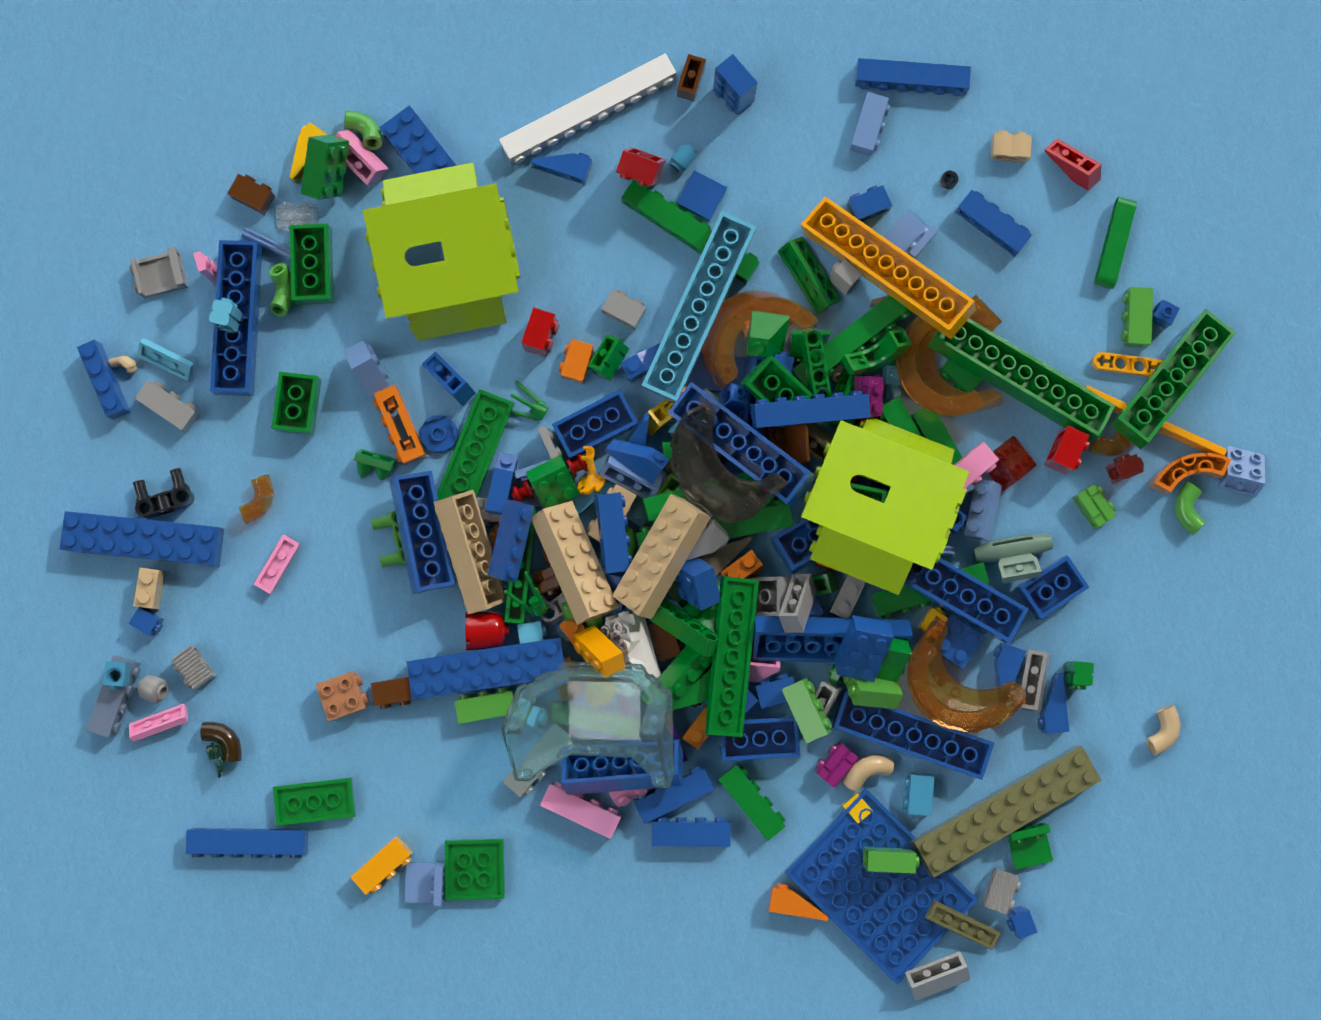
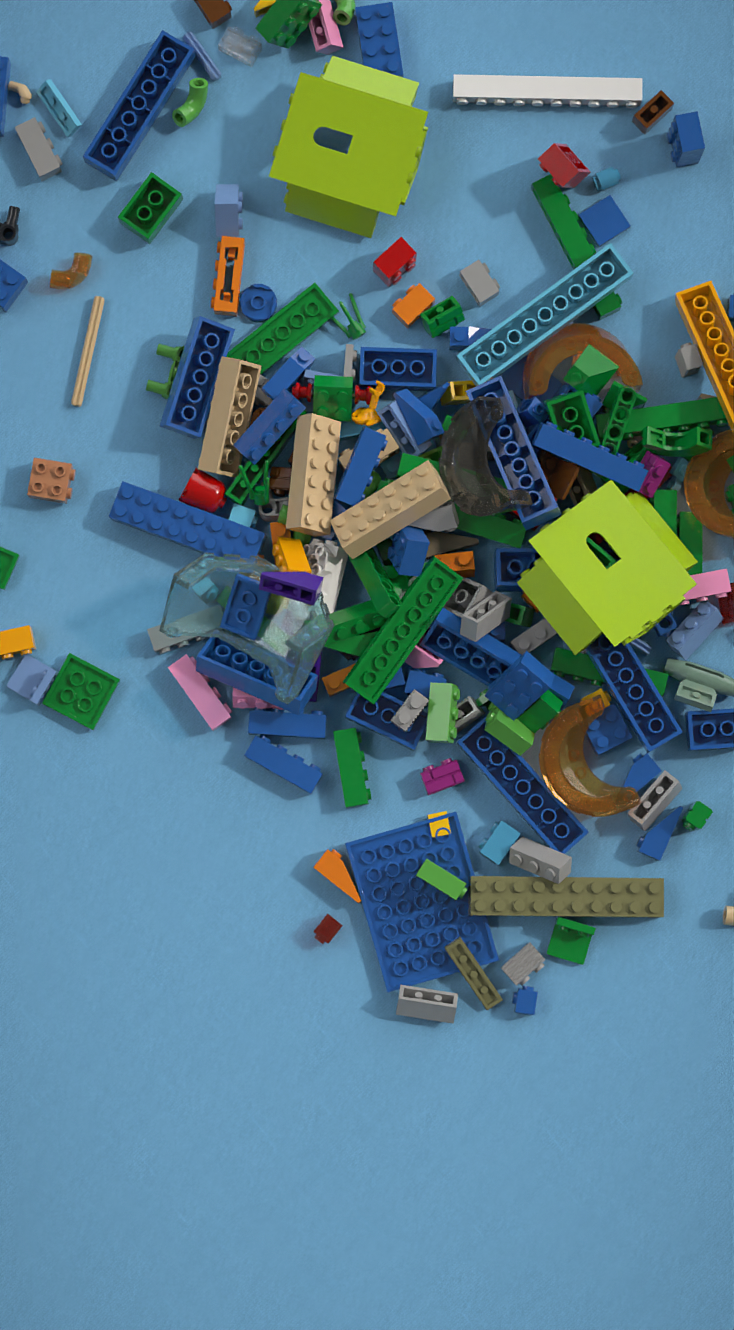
camera: 30 degrees right, 0 degrees up
(159, 273) = (94, 30): light grey panel -> none
(206, 266) = (139, 47): bright pink plate -> none
(225, 315) = (132, 98): medium azure brick -> none
(277, 564) = (57, 337): bright pink plate -> none
(311, 264) = (230, 94): green brick -> none
(311, 561) = (87, 352): none -> tan axle
(368, 459) = (184, 290): green tile -> none
(391, 692) = (94, 501): reddish brown brick -> none
(448, 378) = (293, 259): blue slope -> none
(483, 706) = (164, 556): bright green brick -> none
(567, 166) = (501, 131): blue slope -> none
(580, 714) = (245, 607): none -> blue tile
(615, 674) = (292, 585): none -> dark purple slope
(664, 643) = (352, 588): reddish brown brick -> none
(777, 725) = (409, 711): none -> light grey brick
(807, 276) = (656, 341): green fence -> none
(812, 958) = (327, 929): none -> clear red brick
(866, 768) = (466, 793): tan cylinder -> none
(966, 791) = (540, 860): none -> light grey brick

